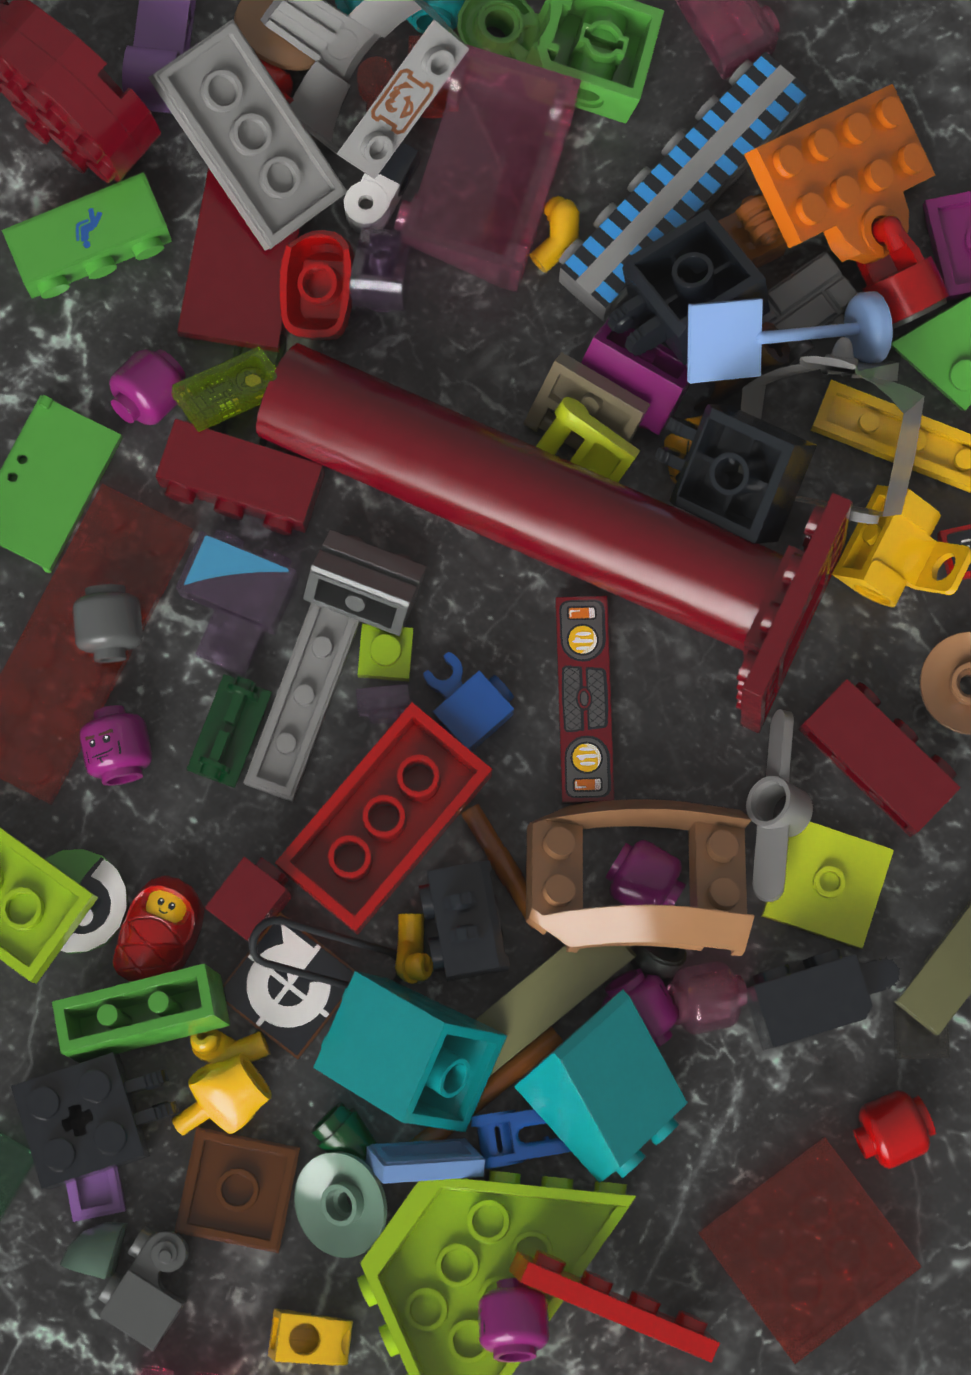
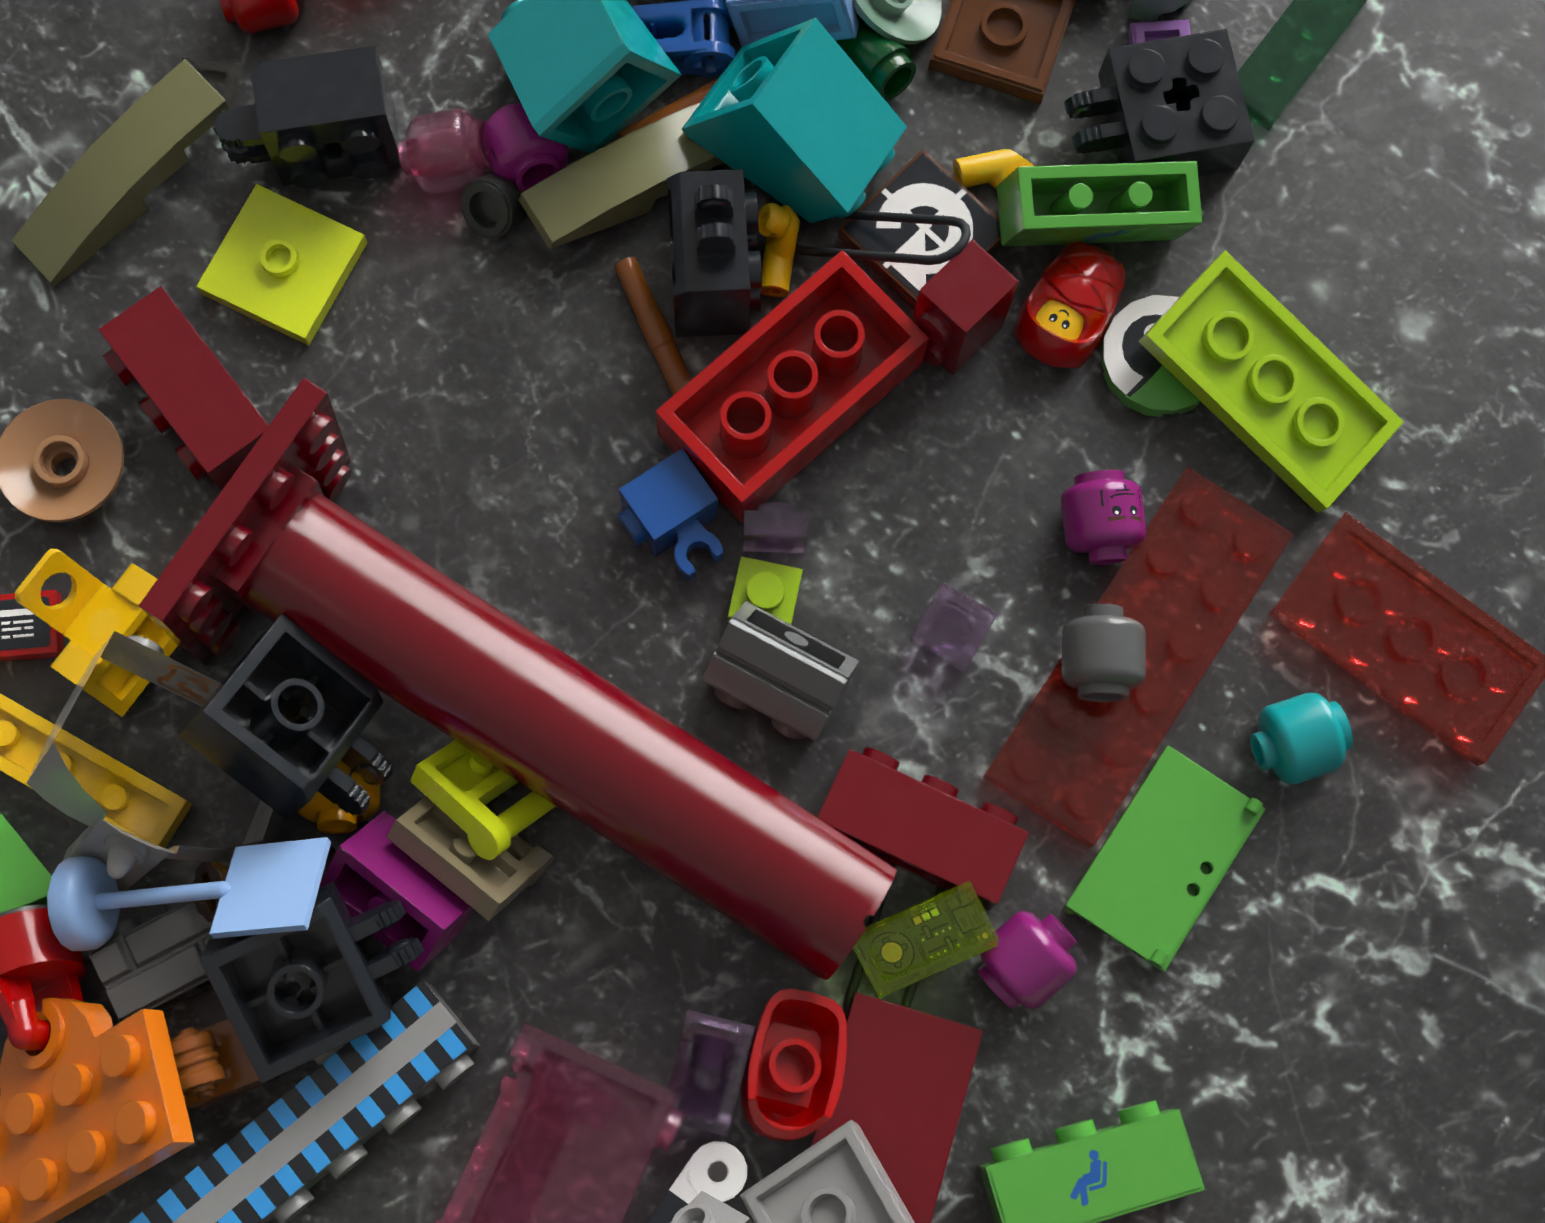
camera: 175 degrees left, 5 degrees down
(225, 1093) = (1007, 120): yellow piece -> none
(229, 730) = (965, 524): dark green hinge -> none
(238, 580) = (936, 697): clear purple brick -> none
(301, 702) = (875, 545): light grey tile -> none
(564, 230) = (462, 1107): yellow arm -> none
(584, 699) = (533, 504): tile -> none
(645, 875) = (494, 291): magenta head -> none
(716, 879) = (411, 269): medium nougat wedge -> none
(774, 833) = (334, 311): light grey piece -> none

